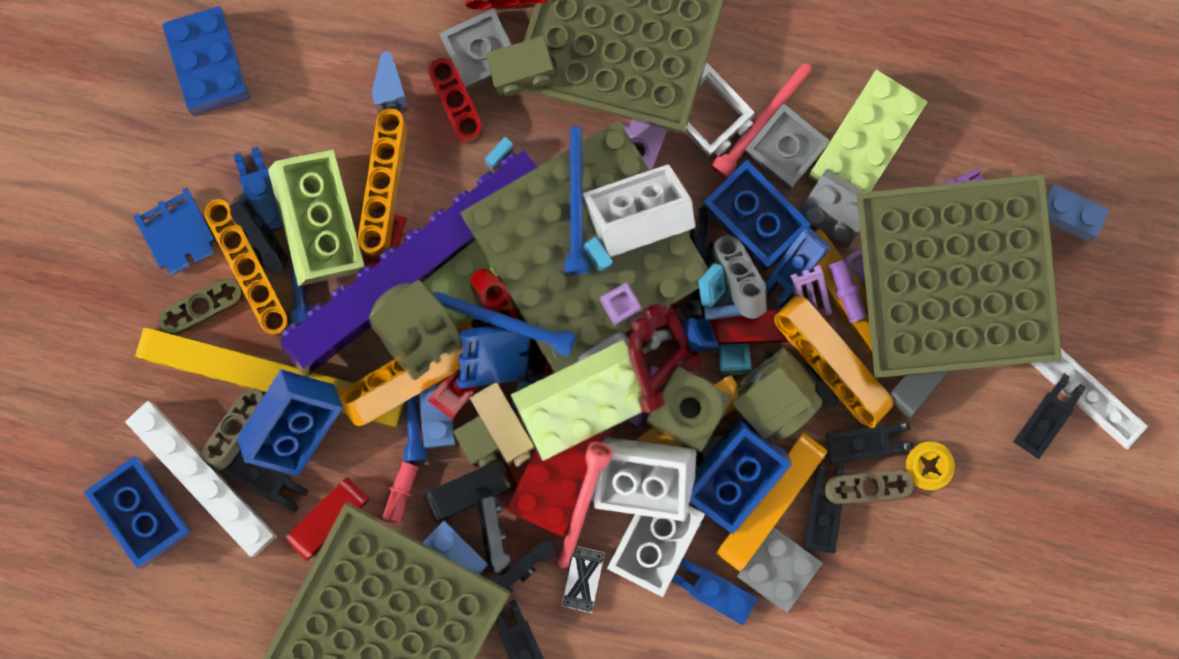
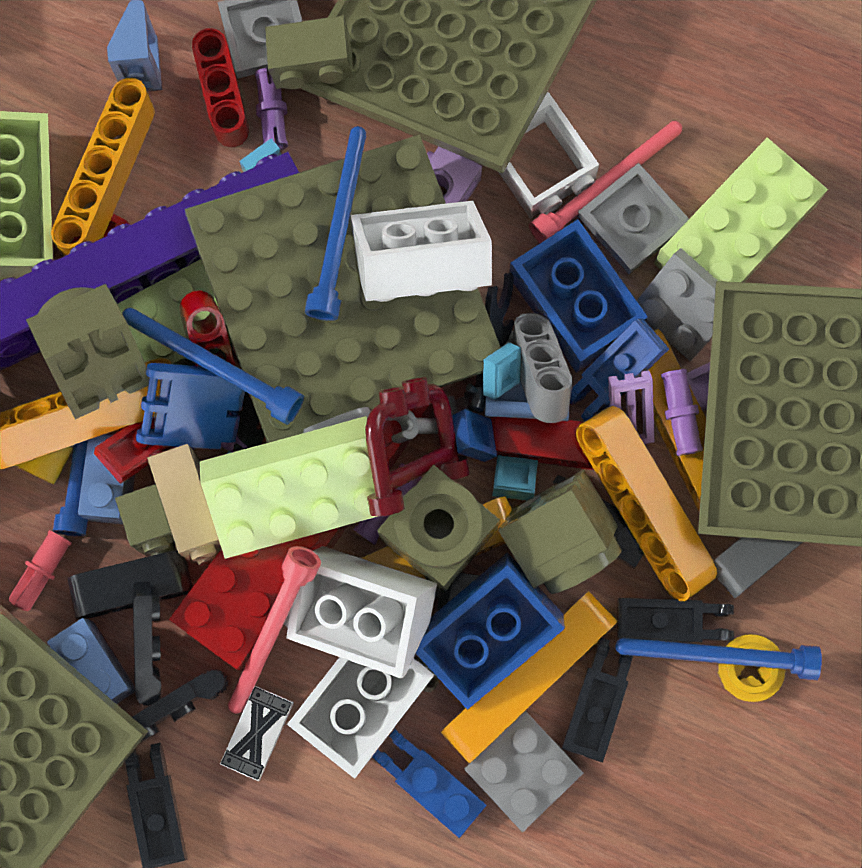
camera: 15 degrees right, 5 degrees down
(497, 111) = (271, 109): none -> medium lavender pin
(597, 254) = (352, 295): medium azure tile -> none
(620, 303) = (372, 368): lavender tile -> none
(850, 497) = (636, 690): dark tan beam -> none
(964, 455) = (802, 661): none -> blue piece

